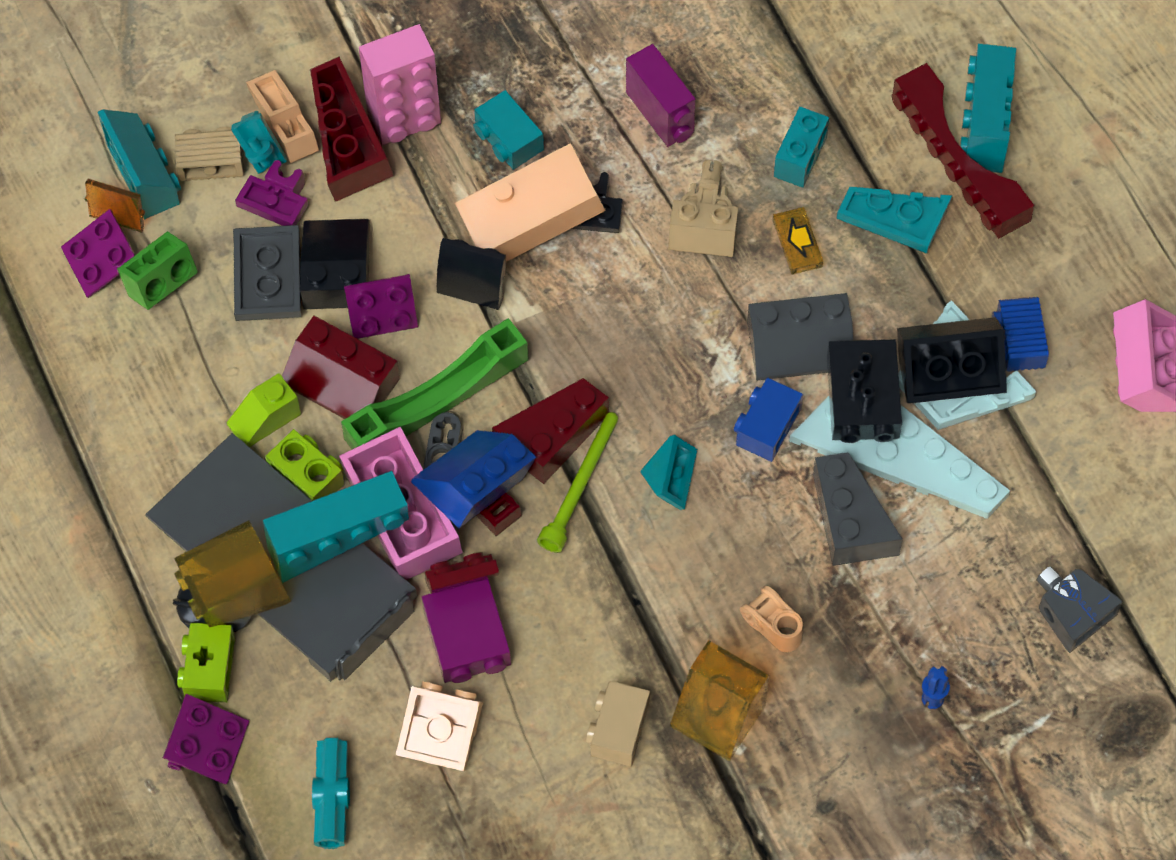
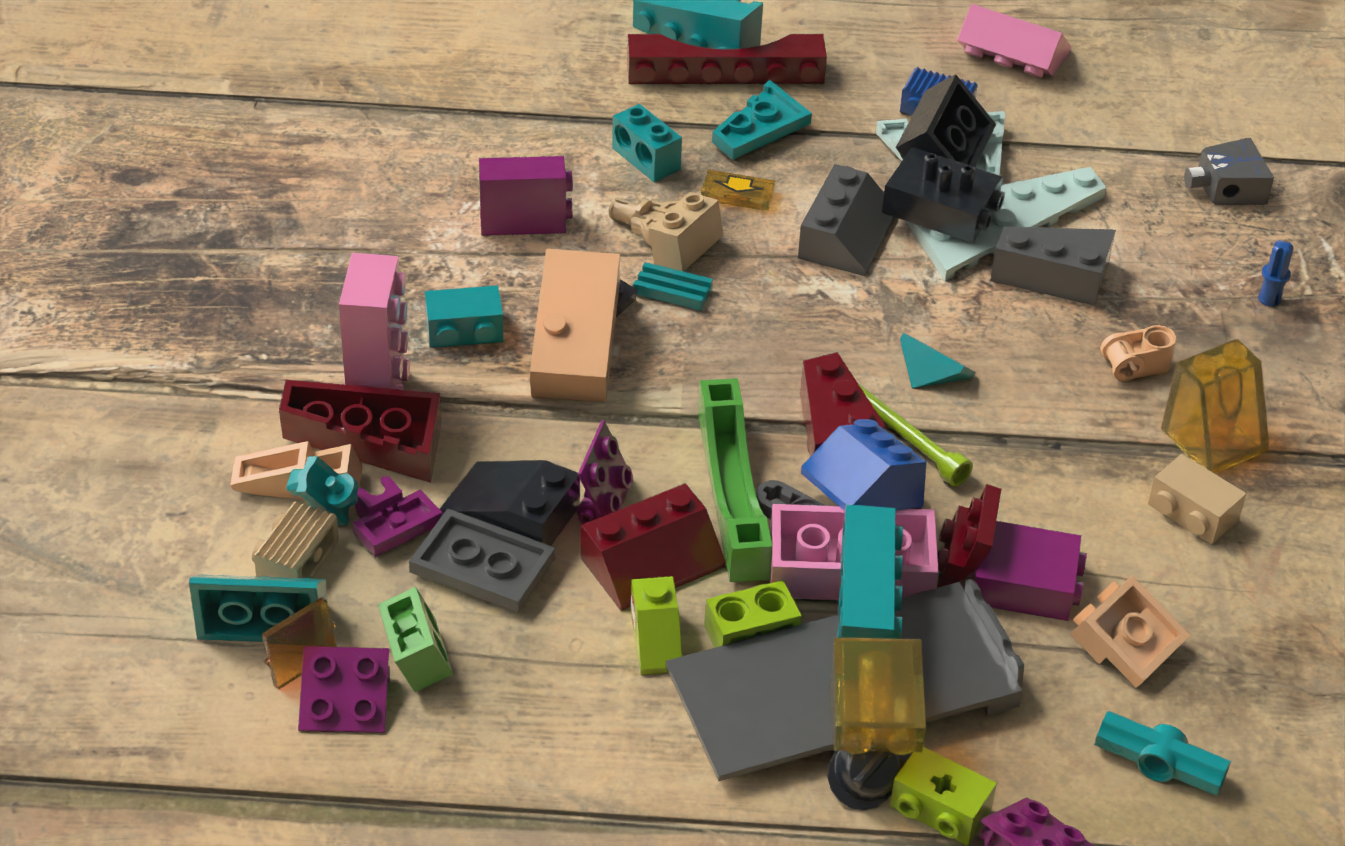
camera: 65 degrees left, 20 degrees down
(471, 273) = (620, 392): black slope -> none
(642, 227) = (673, 286): none -> teal tile
(768, 419) = (922, 274): blue brick -> none

